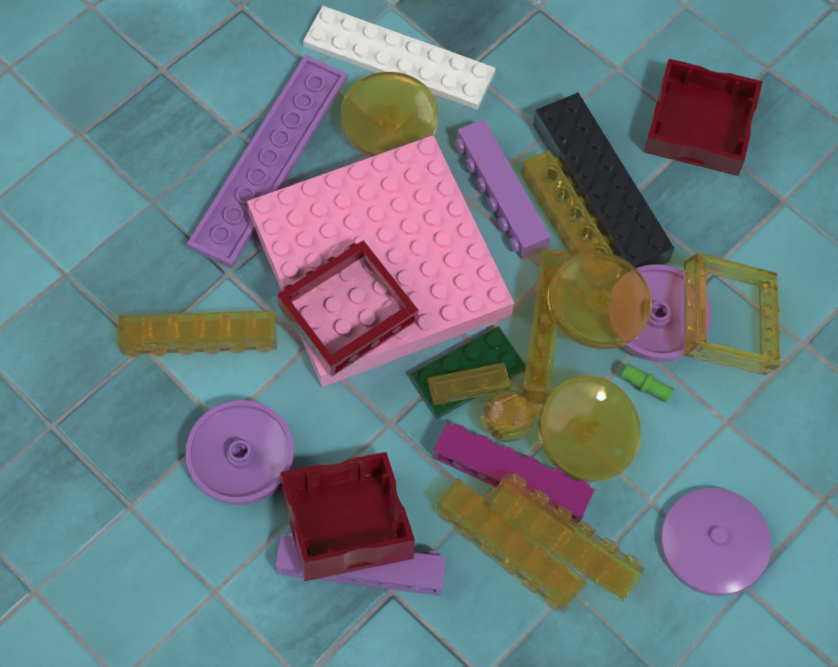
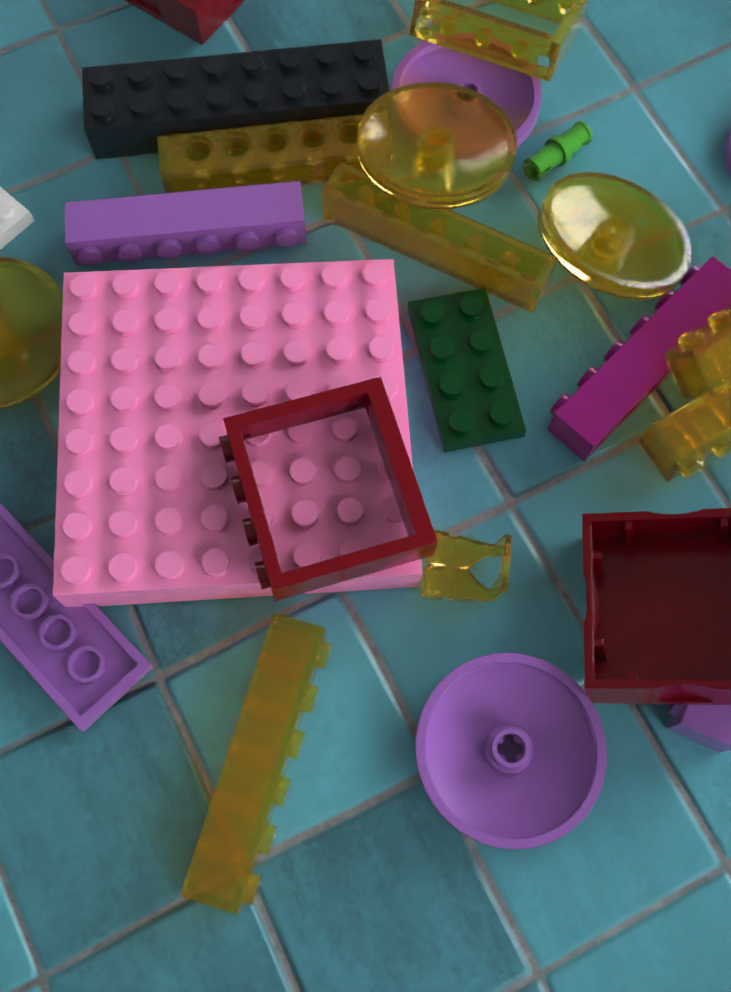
camera: 70 degrees left, 5 degrees up
(337, 398) = (450, 574): none -> clear yellow piece
(468, 383) = (497, 366): clear yellow tile -> none
(509, 415) = (562, 329): clear yellow brick -> none

